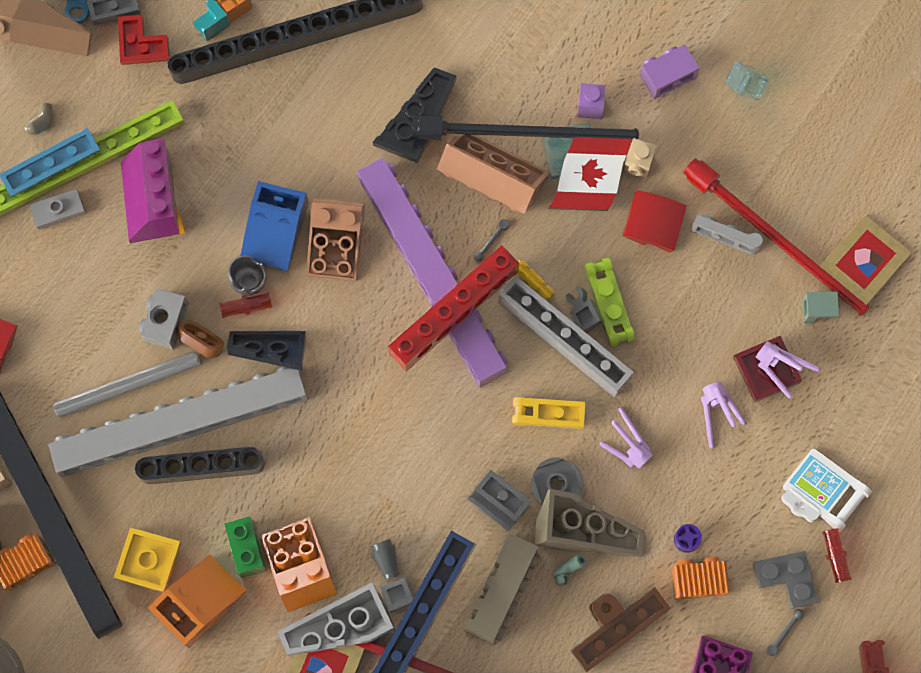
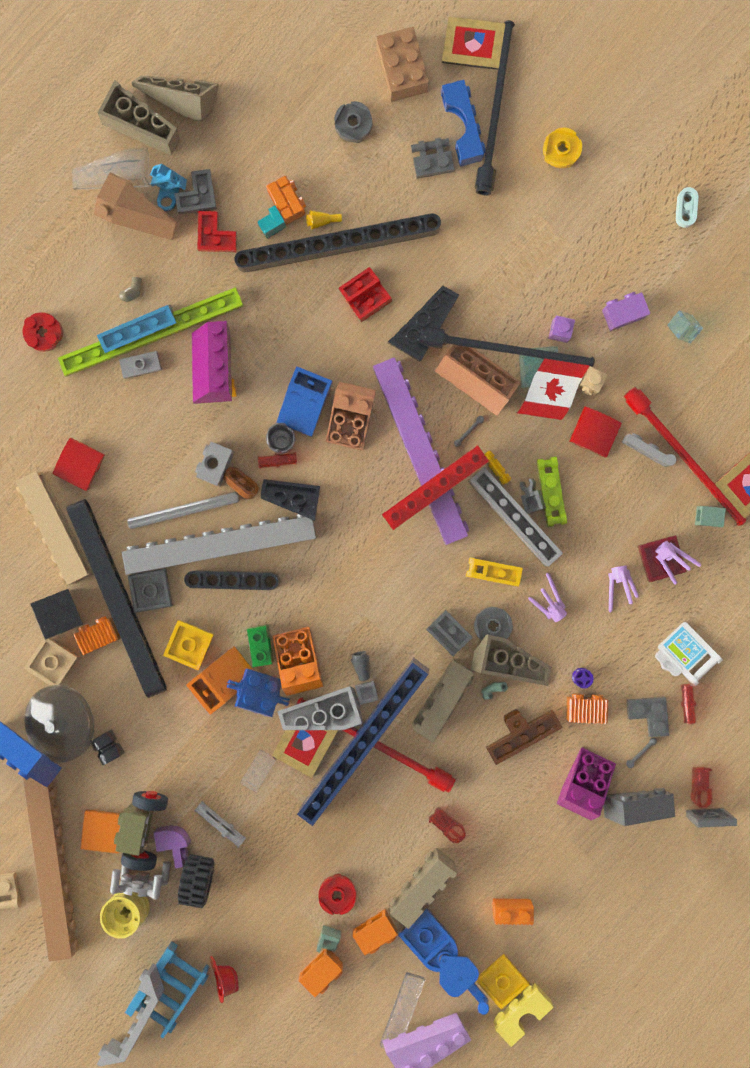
camera: 10 degrees right, 15 degrees up
(90, 495) = (150, 590): none -> dark grey tile
(248, 610) = (258, 693): none -> blue plate
(269, 10) = (319, 219): none -> yellow cone
(338, 91) = (365, 294): none -> red slope

